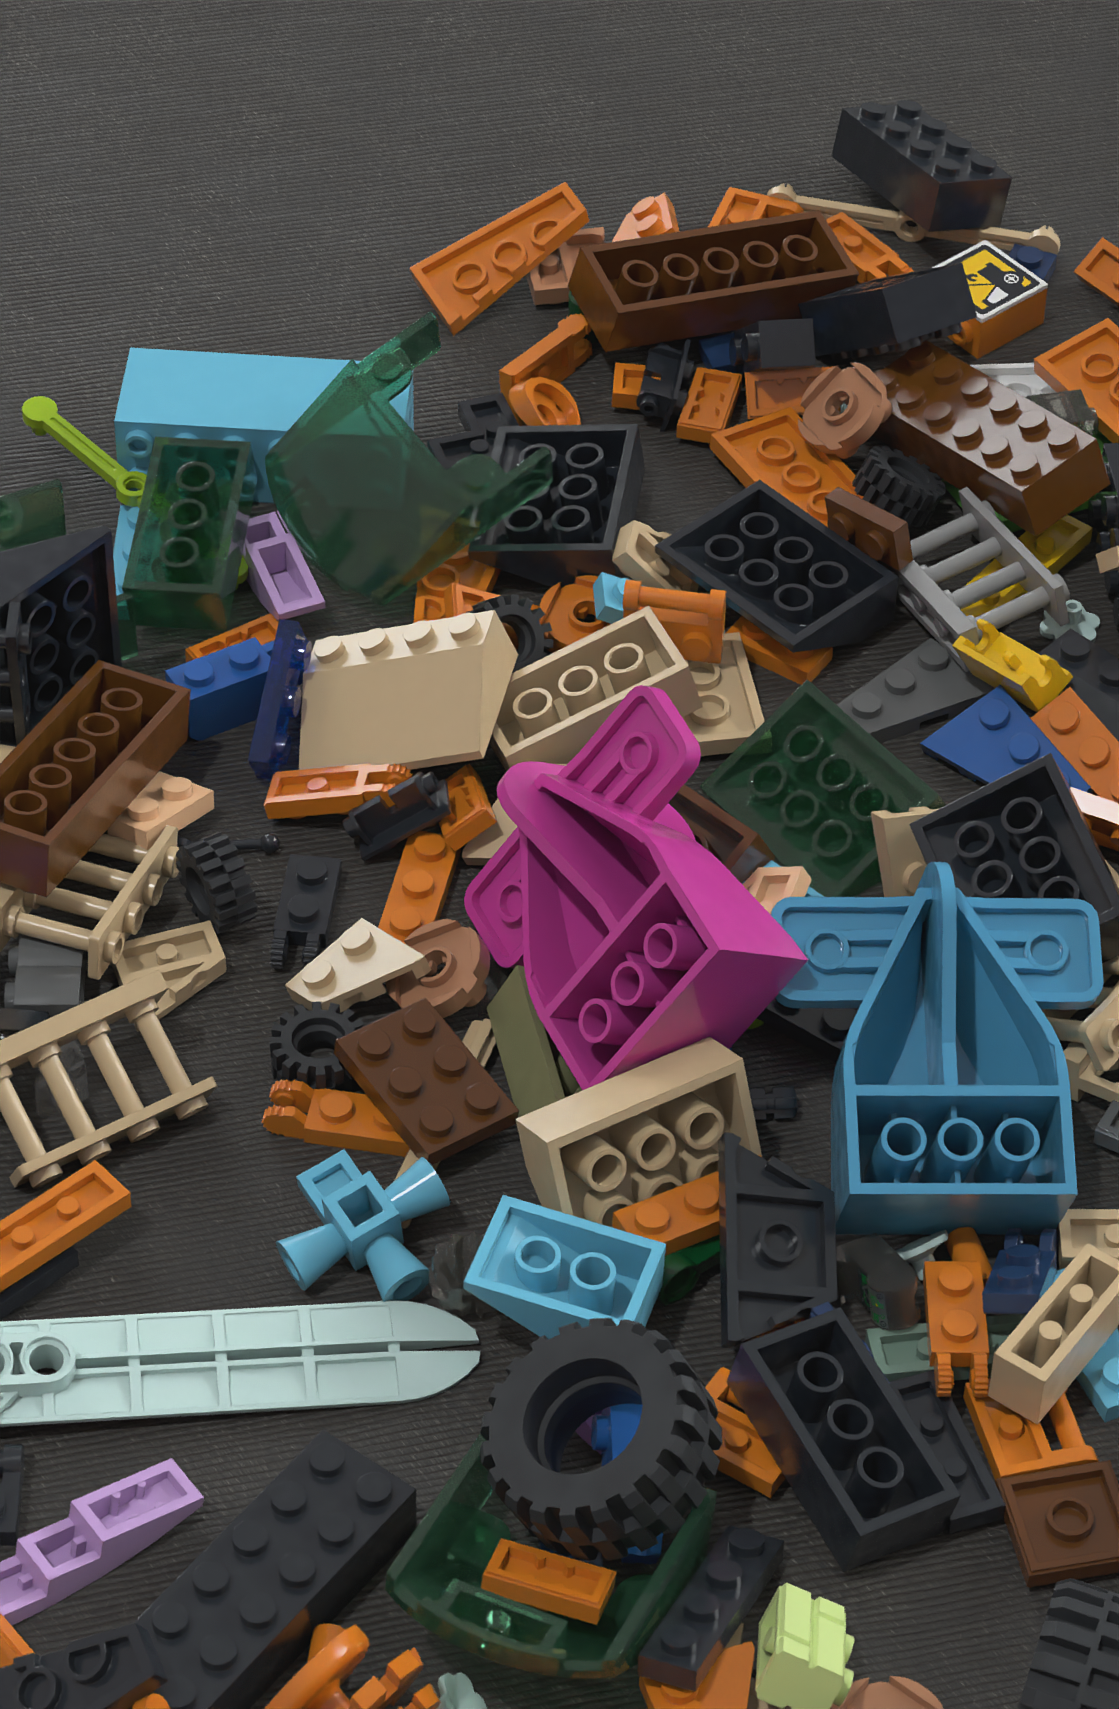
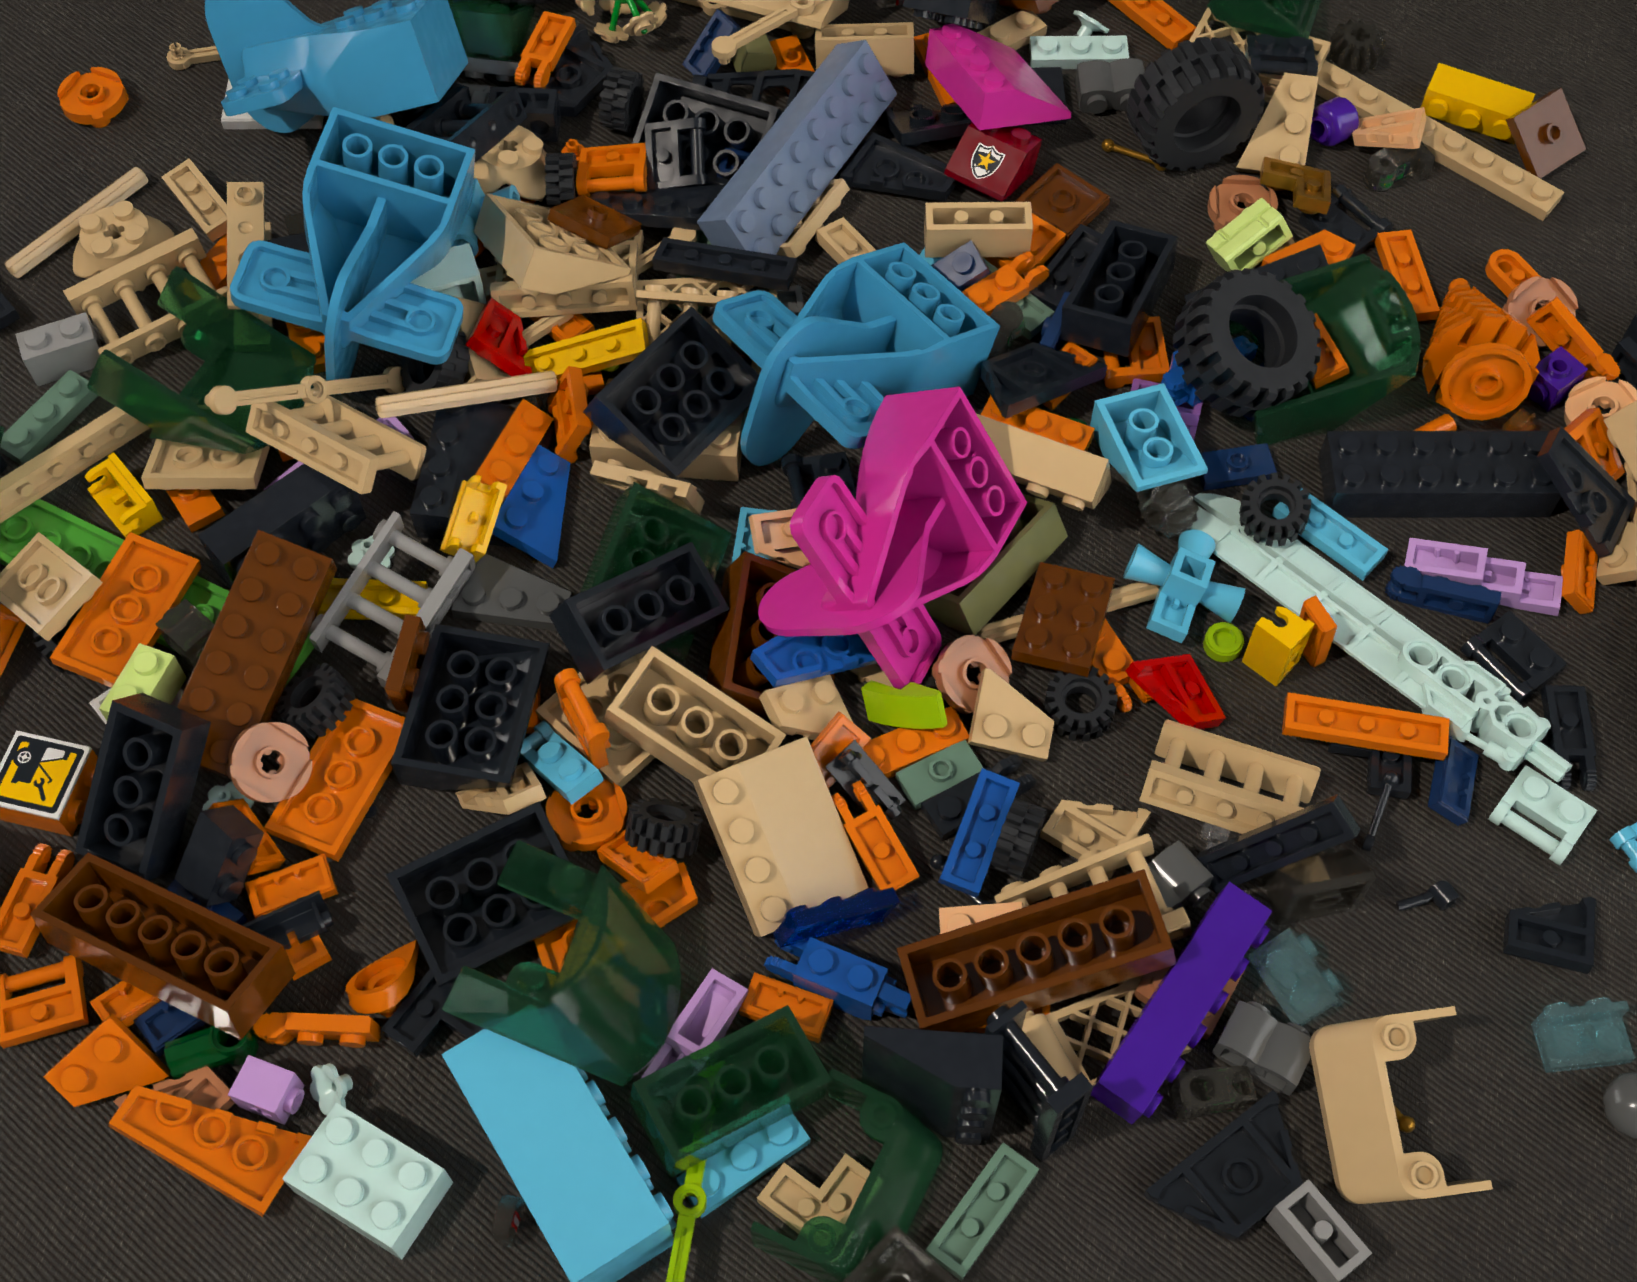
camera: 125 degrees left, 15 degrees up
(122, 1456) = (1442, 594): none -> dark blue hinge
(175, 1273) = (1322, 632): none -> orange plate
(195, 1233) = (1276, 649): none -> yellow hinge
(243, 1136) = (1179, 689): none -> red wing
(258, 1237) = (1223, 642): none -> lime tile
(275, 875) = (978, 833): none -> blue plate
(279, 1432) = (1338, 538): none -> medium azure plate
(360, 892) = (938, 773): none -> sand green plate
(365, 315) = (368, 1180): none -> light aqua brick
(366, 1343) = (1278, 490): none -> black tyre
(442, 889) = (910, 707): none -> lime slope
(464, 1417) = (1236, 466): none -> dark blue plate
(481, 350) = (329, 1087): none -> light aqua plant
(519, 312) = (267, 1090): none -> lavender brick
(756, 710) = (638, 610): none -> black brick
(1016, 361) = (149, 673): none -> yellowish green brick

